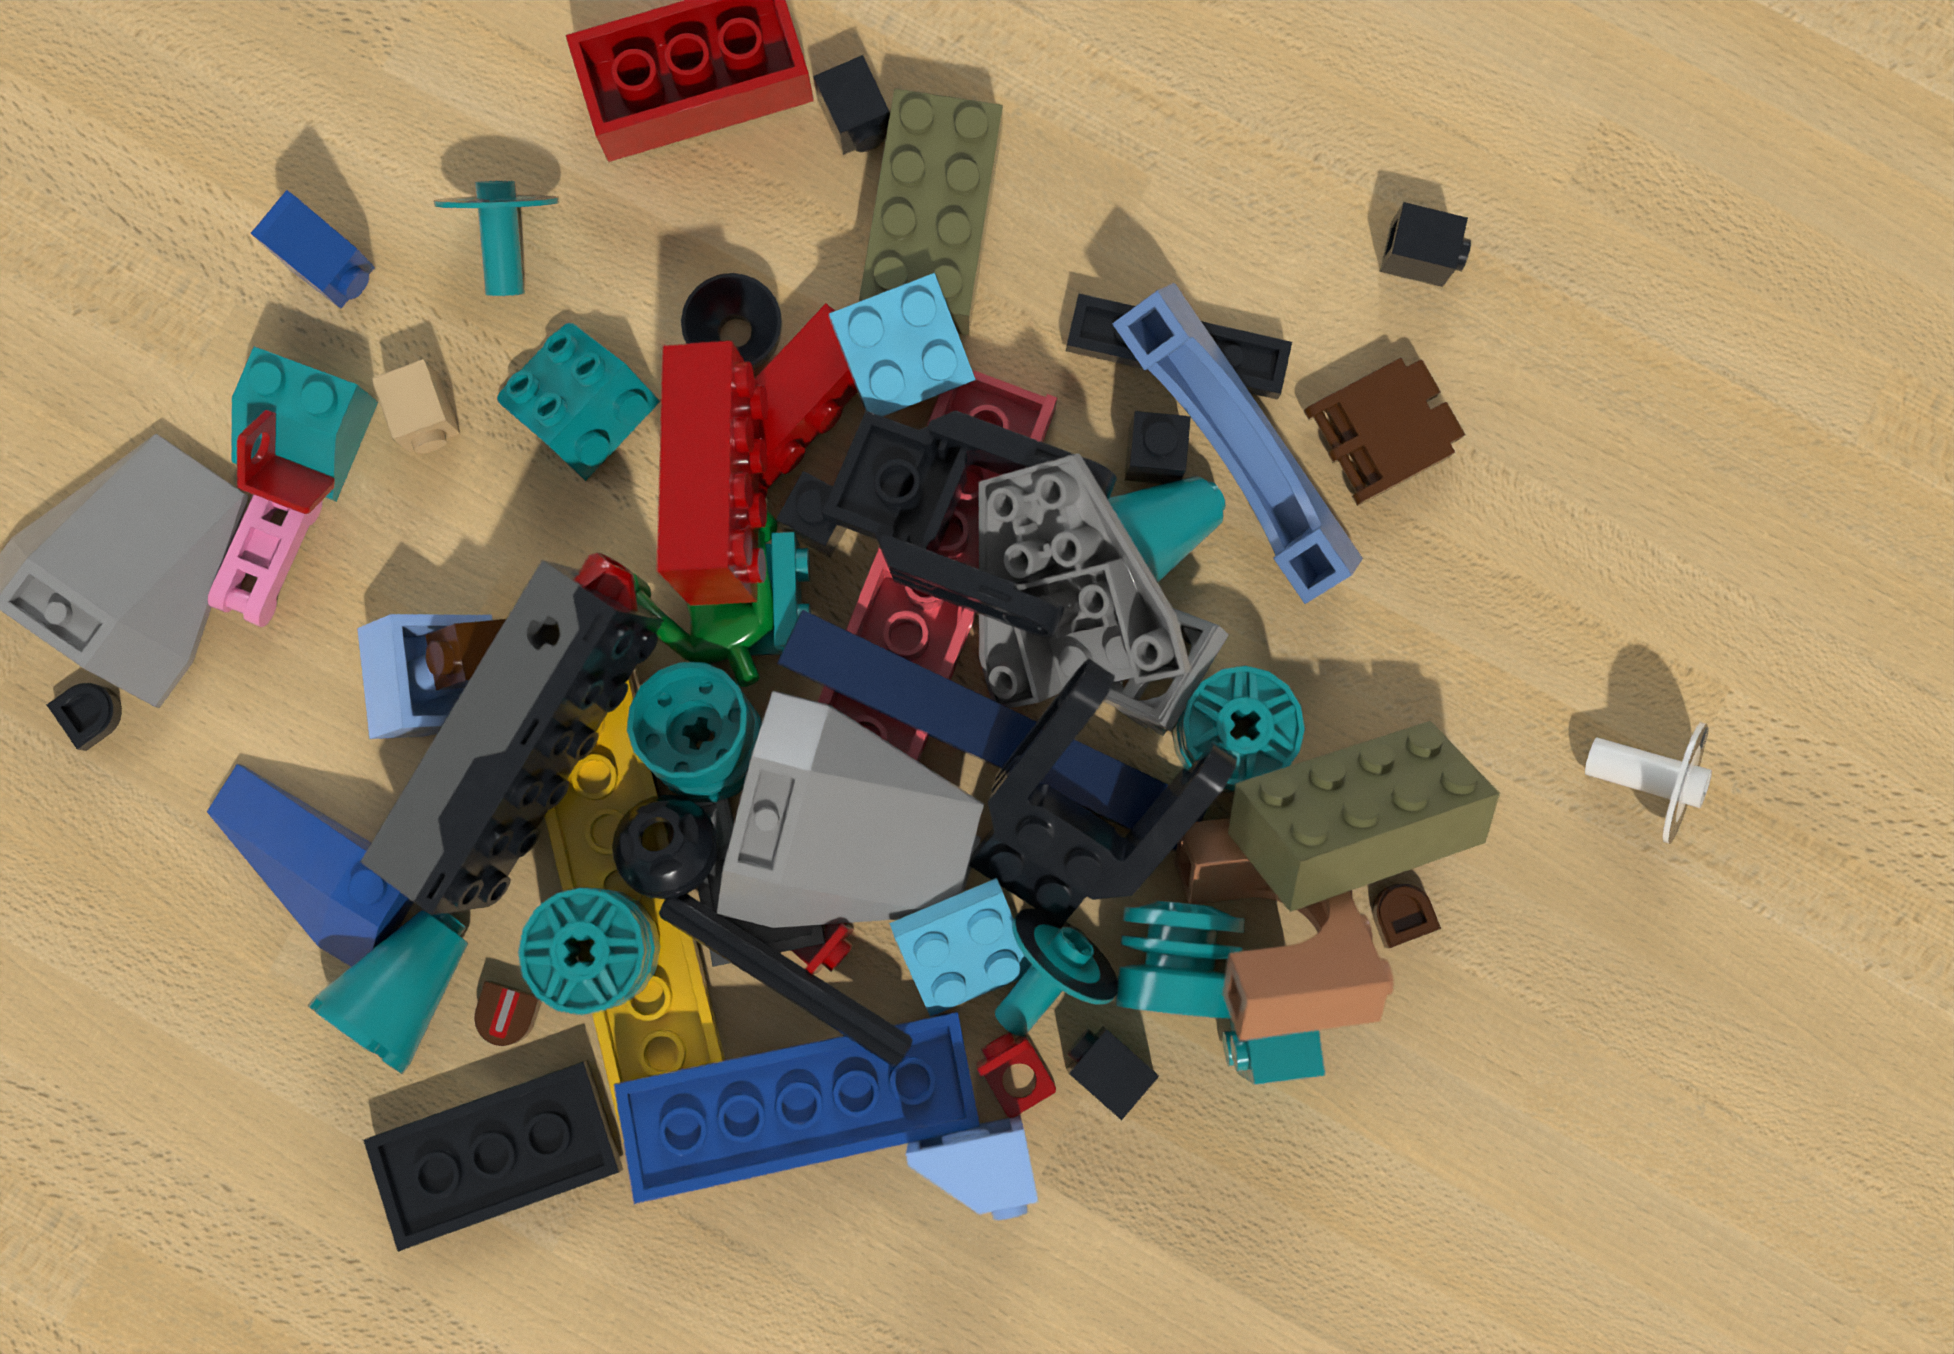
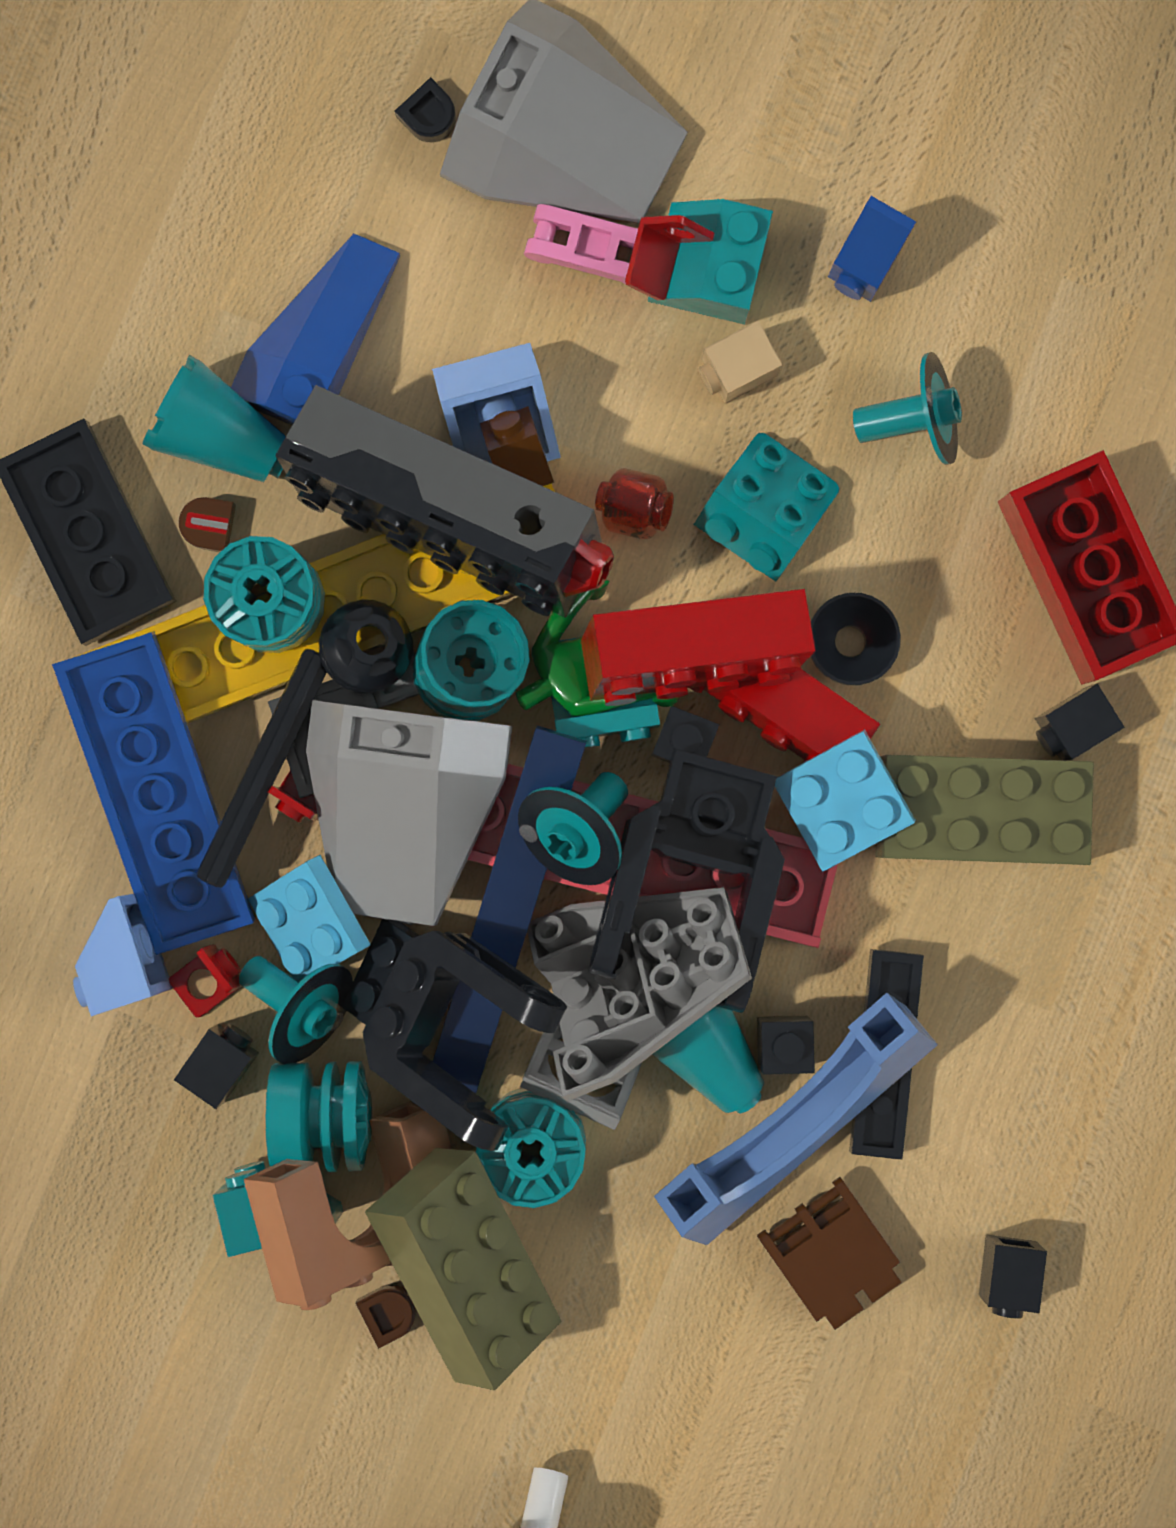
camera: 90 degrees right, 5 degrees up
(553, 533) = (634, 503): none -> clear red head
(896, 632) = (574, 831): none -> piece

